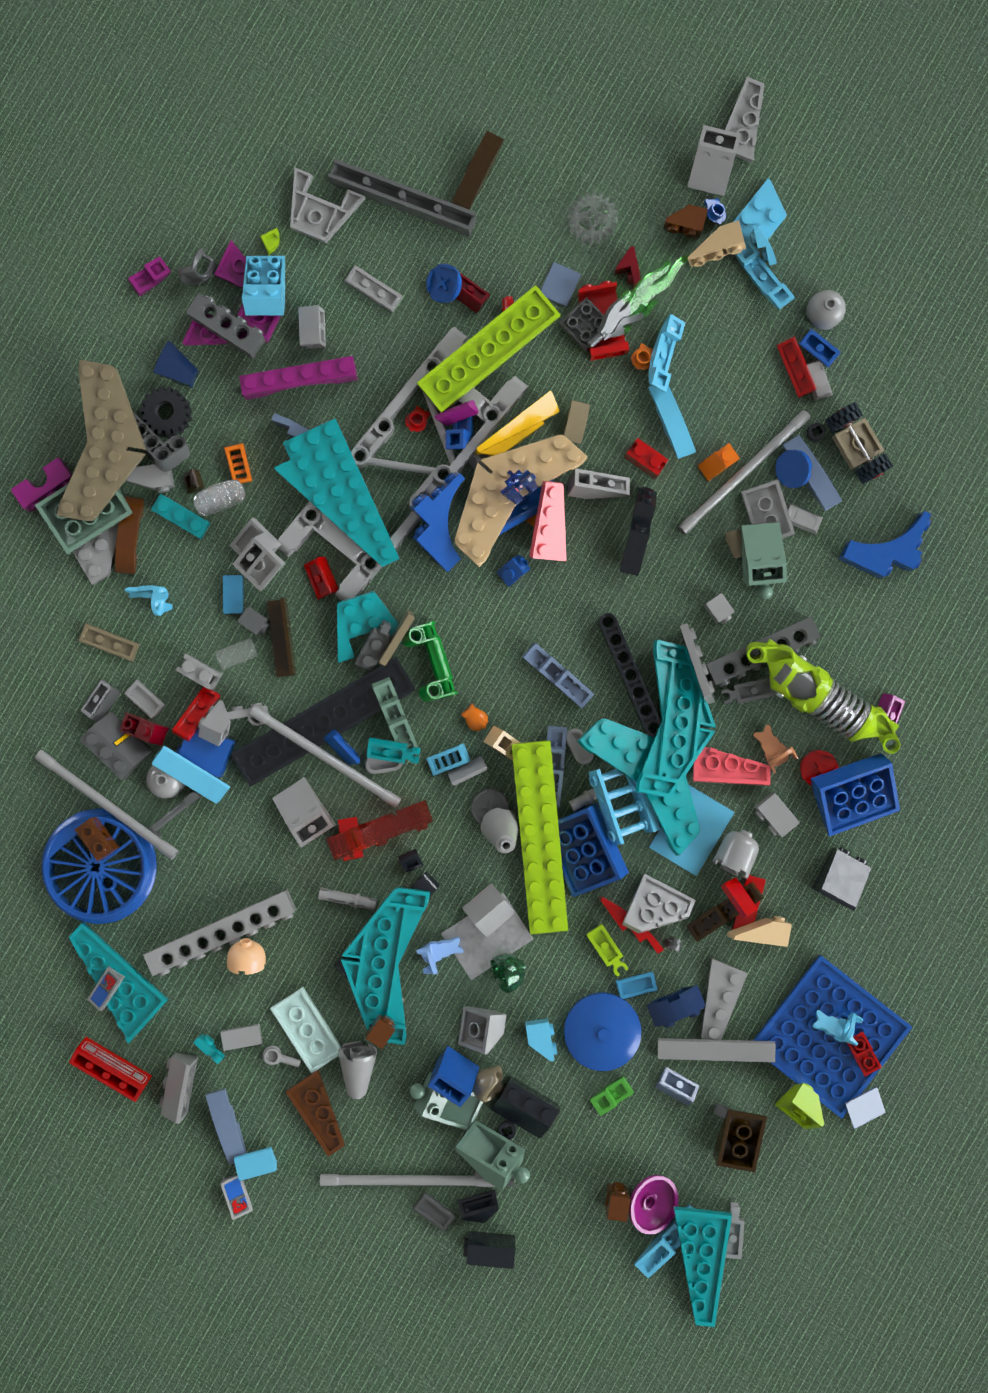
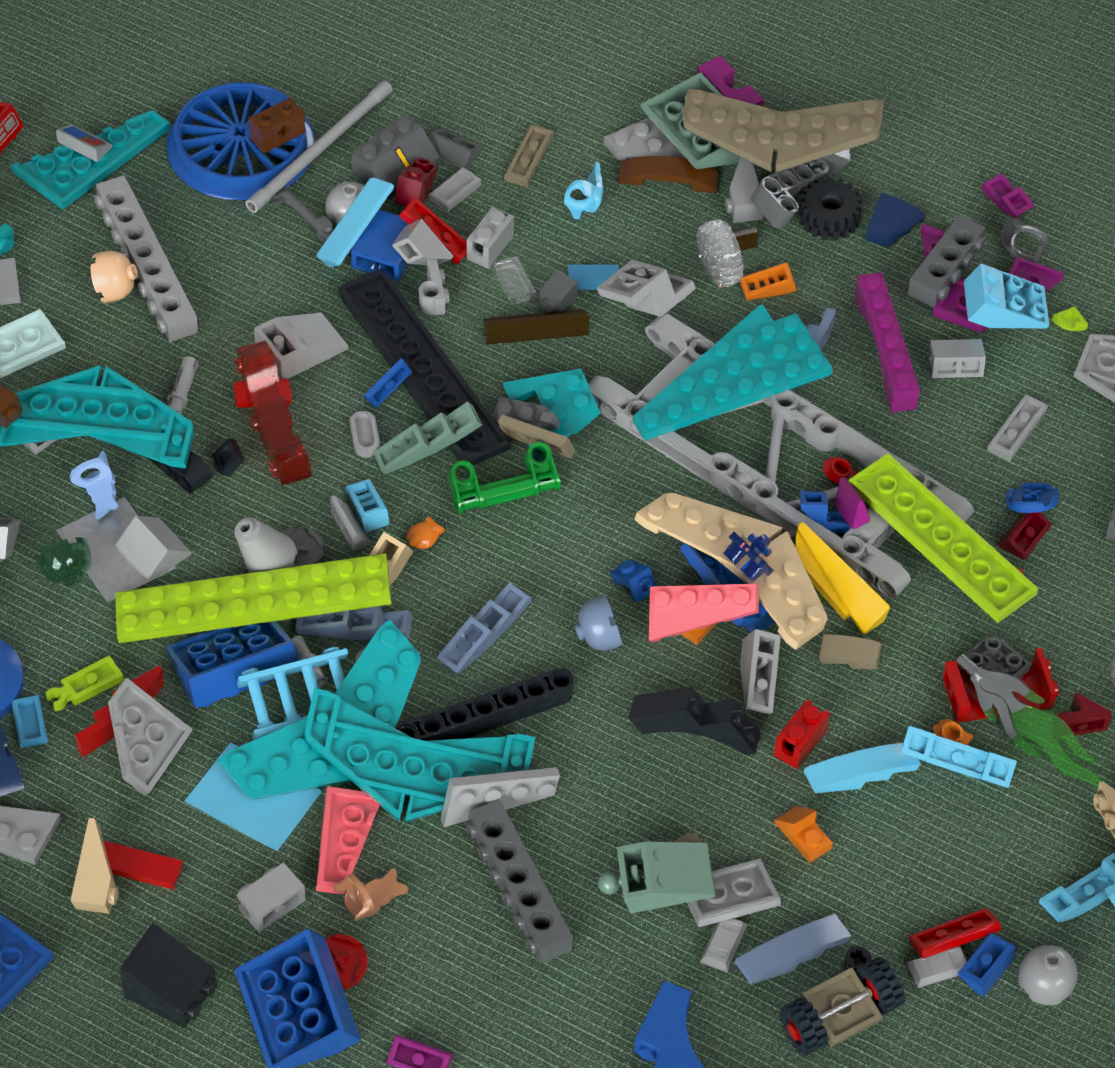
camera: 90 degrees right, 35 degrees down
(180, 516) = (684, 237): teal plate -> none
(321, 577) = (621, 367): red slope -> none
(384, 794) = (321, 430): light grey piece -> none
(391, 751) = (380, 432): teal plate -> none
(434, 511) = (706, 474): blue arch -> none
(560, 284) = (1056, 641): sand blue window -> none
(561, 595) = (597, 625): none -> sand blue cylinder
(673, 944) = (85, 765): dark grey plate -> none
(694, 518) = (867, 931): light grey piece -> none
(719, 609) = (582, 825): light grey brick -> none
(720, 915) = (128, 829): dark brown slope -> none
(737, 853) = (215, 837): light grey cylinder -> none
(739, 897) = (149, 833): red tile -> none
(749, 691) = (458, 866): dark grey plate -> none
(793, 468) = (799, 917): blue tile -> none
(815, 692) = (452, 938): piece -> none

